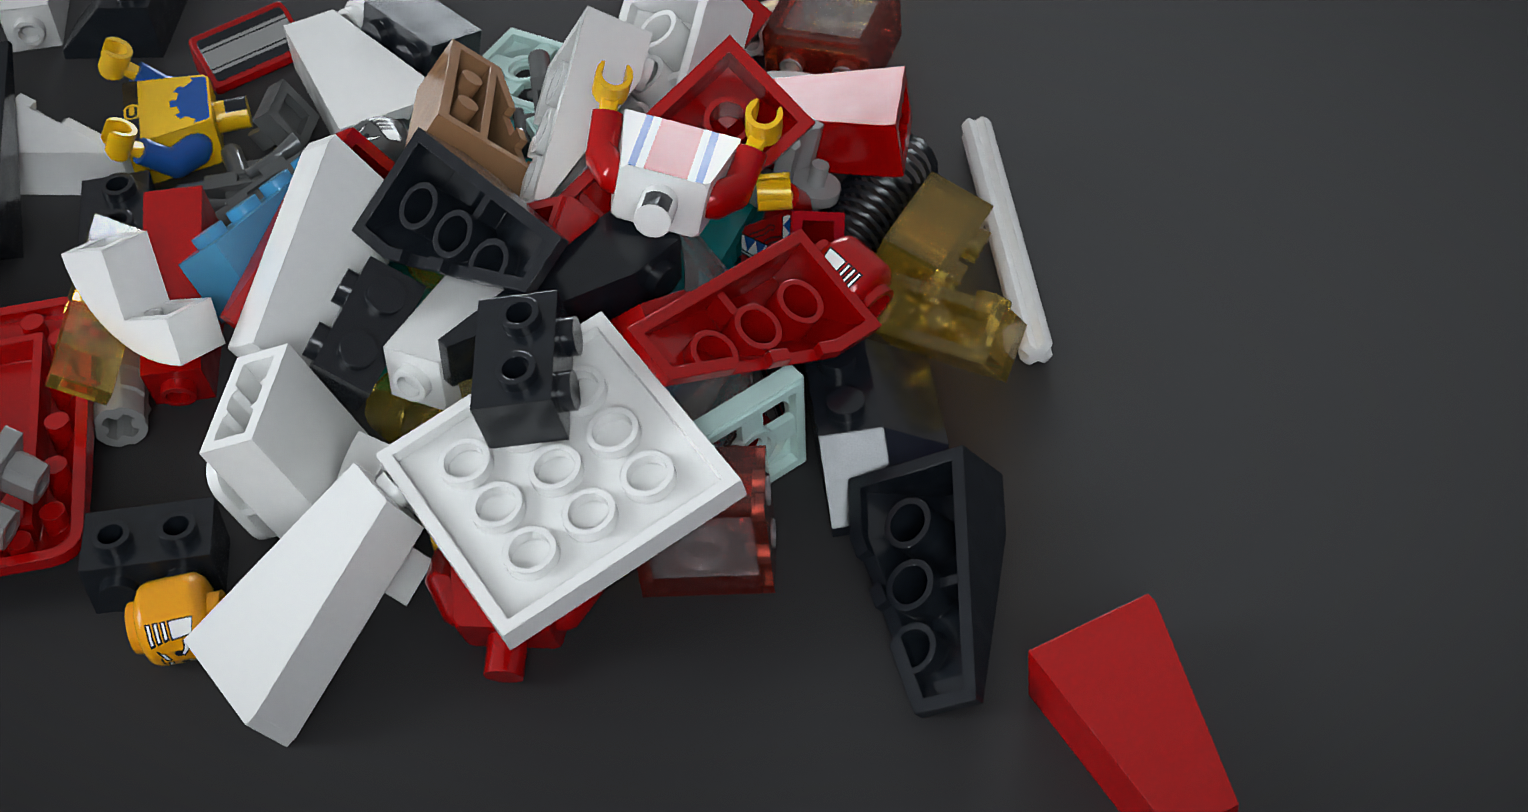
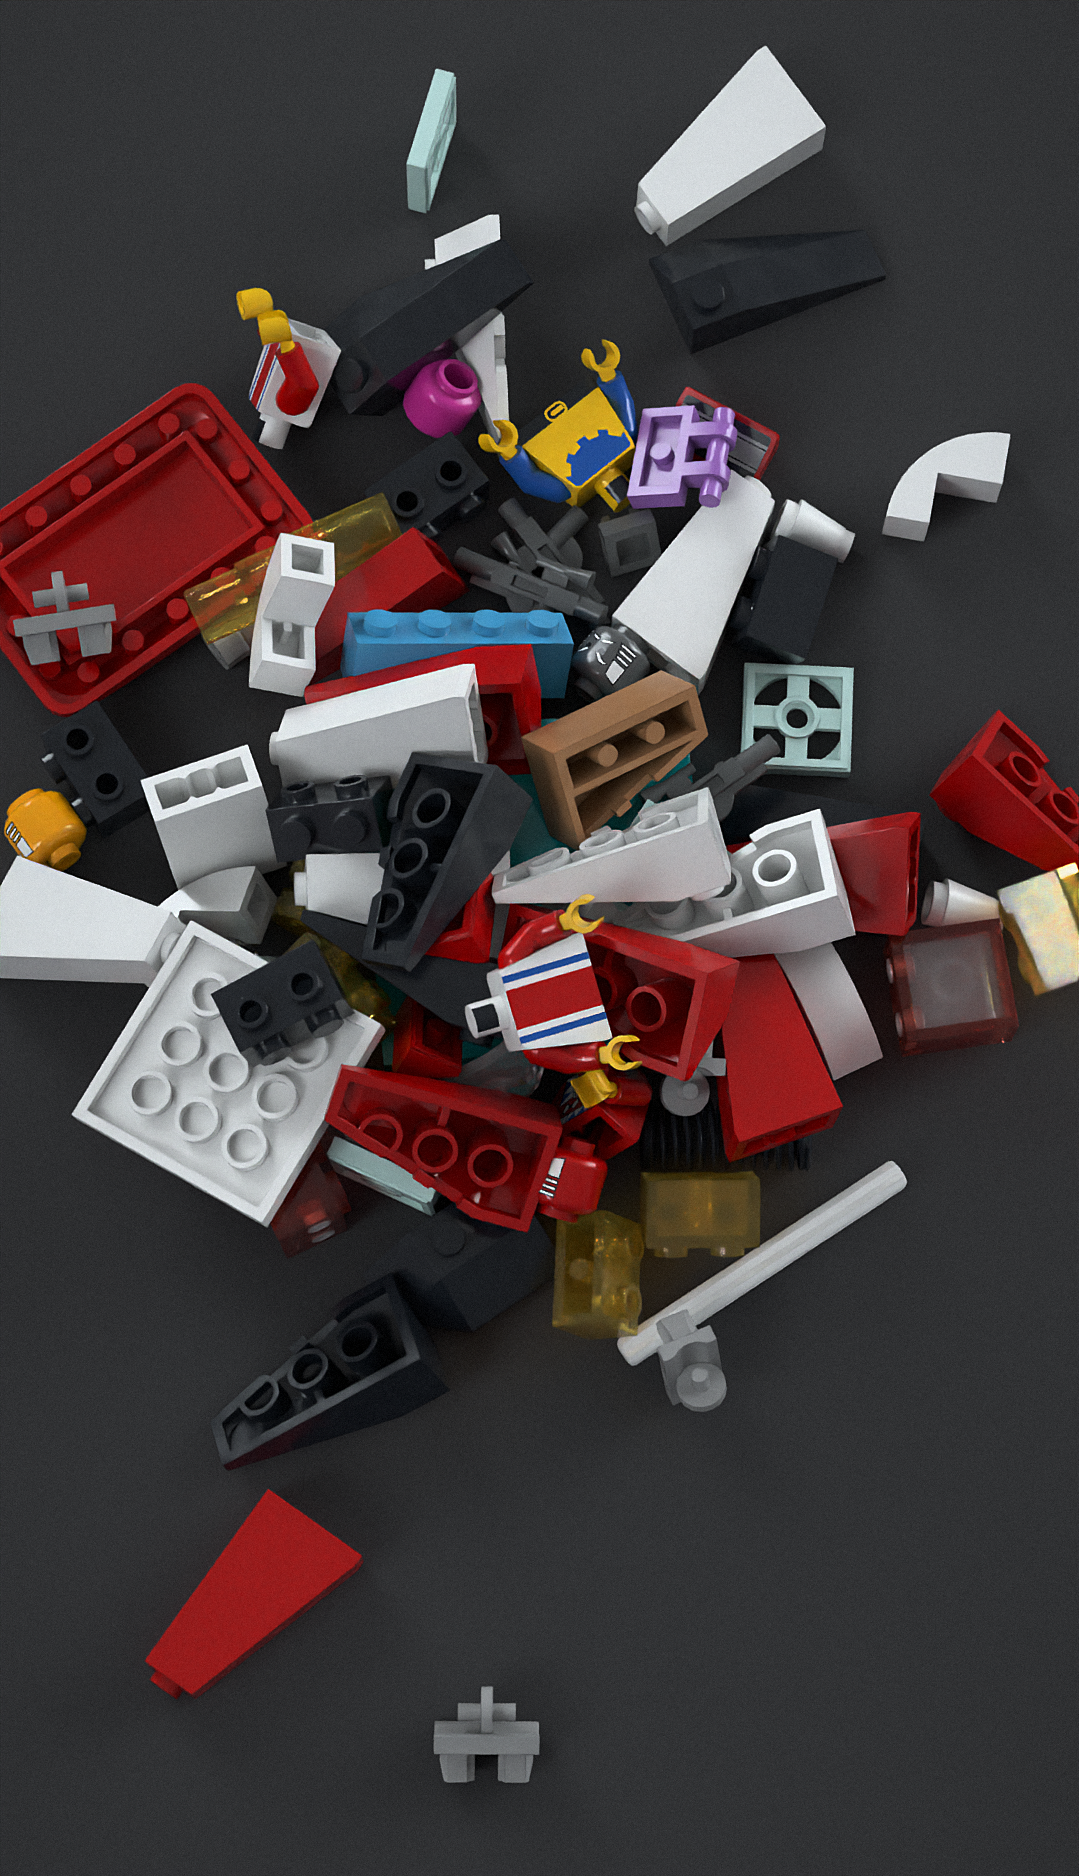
camera: 55 degrees right, 30 degrees up
(47, 185) = (442, 398): none -> dark pink head
(247, 51) = (665, 455): none -> medium lavender plate
(1086, 285) = (690, 1363): none -> light grey hips
(1396, 571) = (486, 1730): none -> light grey hips

